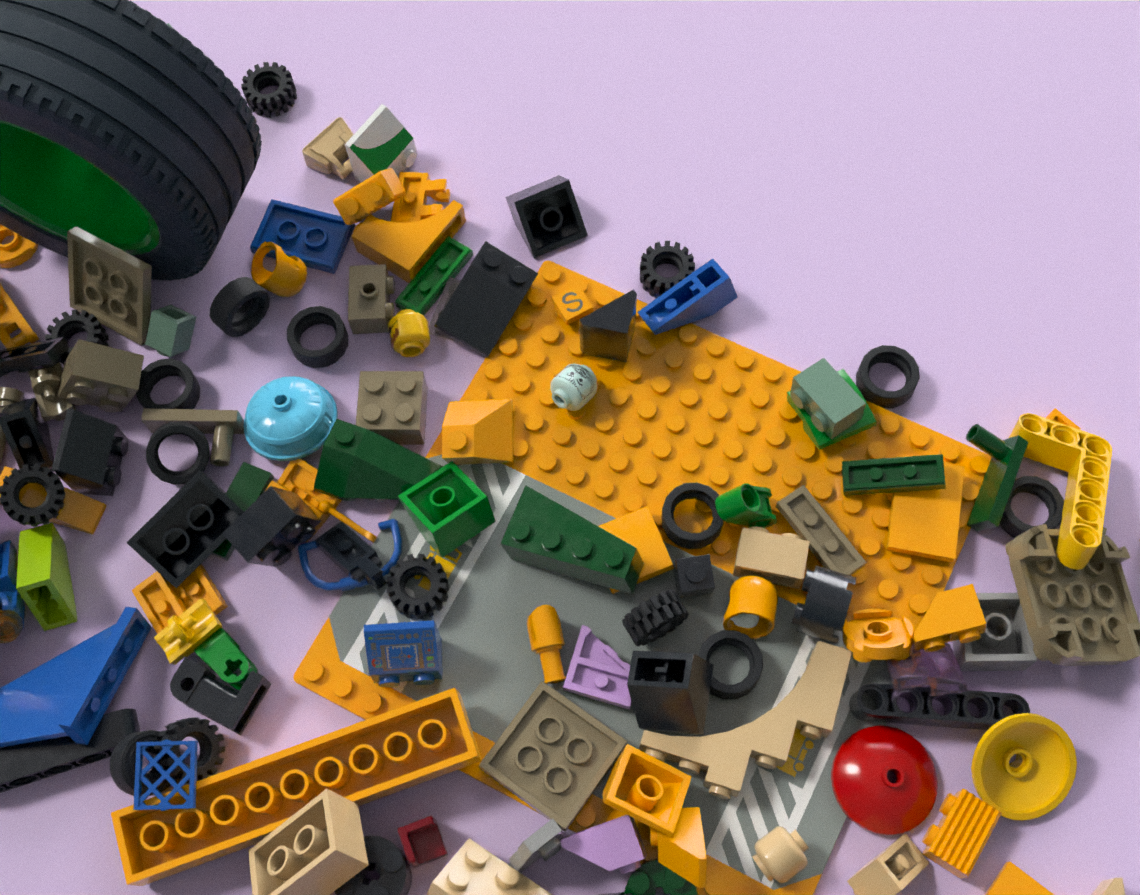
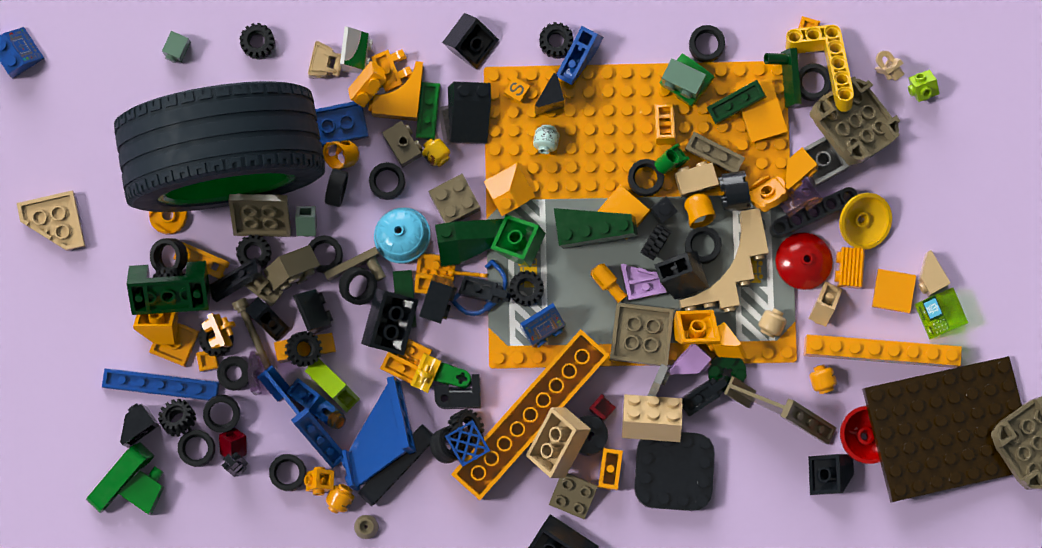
camera: 30 degrees left, 15 degrees up
(755, 472) = (665, 136): none -> light orange slope

